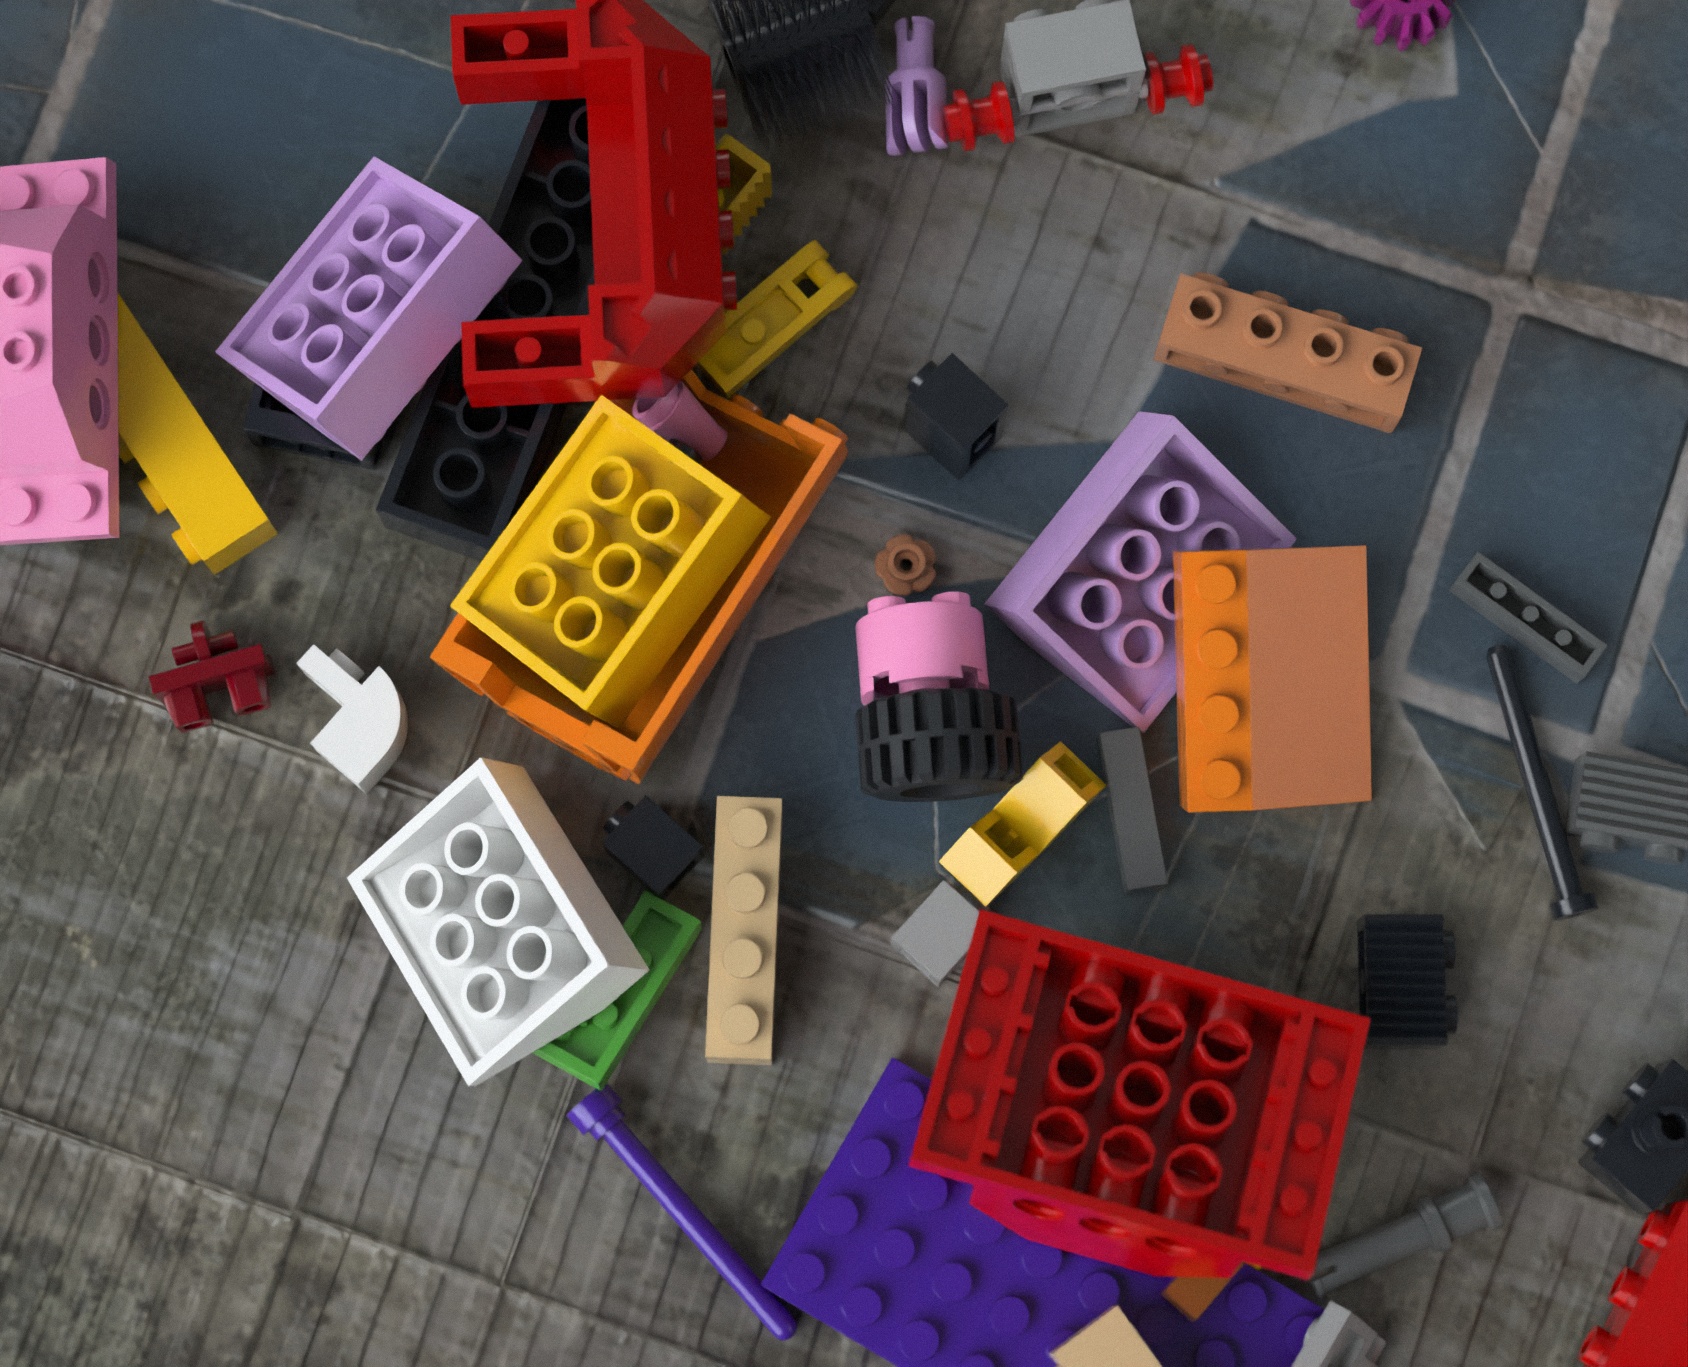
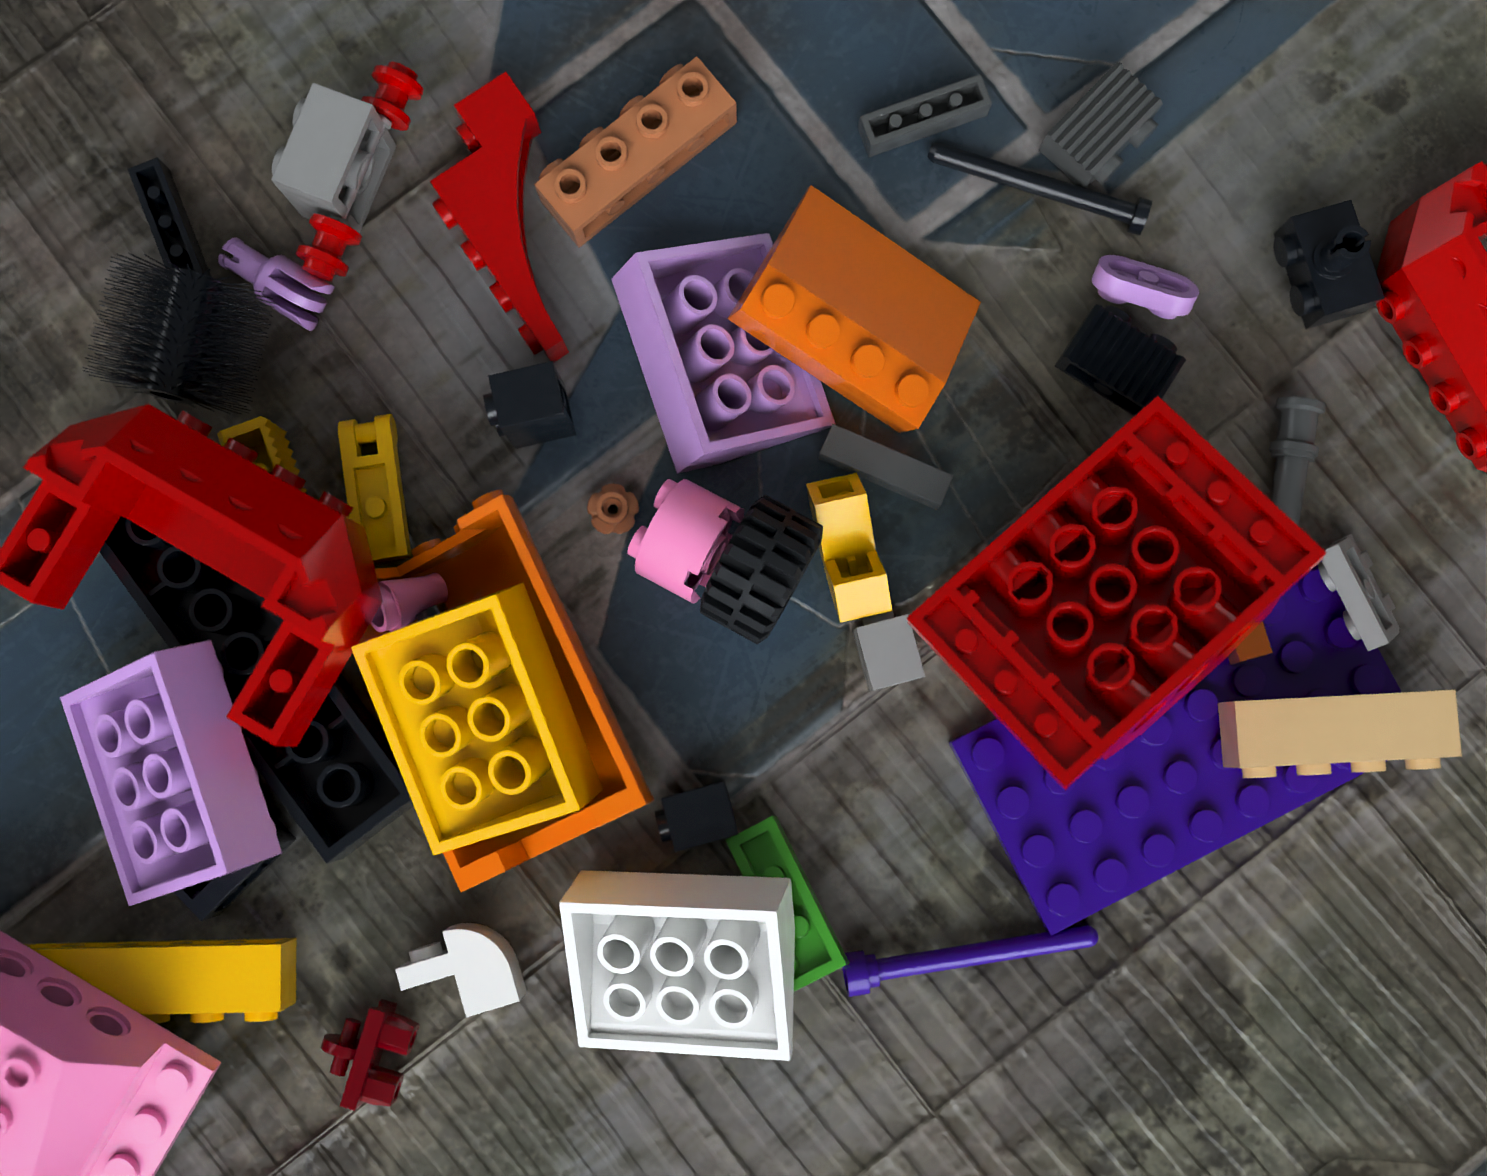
camera: 55 degrees left, 5 degrees up
(744, 930) = (801, 790): tan brick -> none
(1132, 242) = (487, 203): none -> red arch
(1501, 957) = (1144, 285): none -> lavender plate

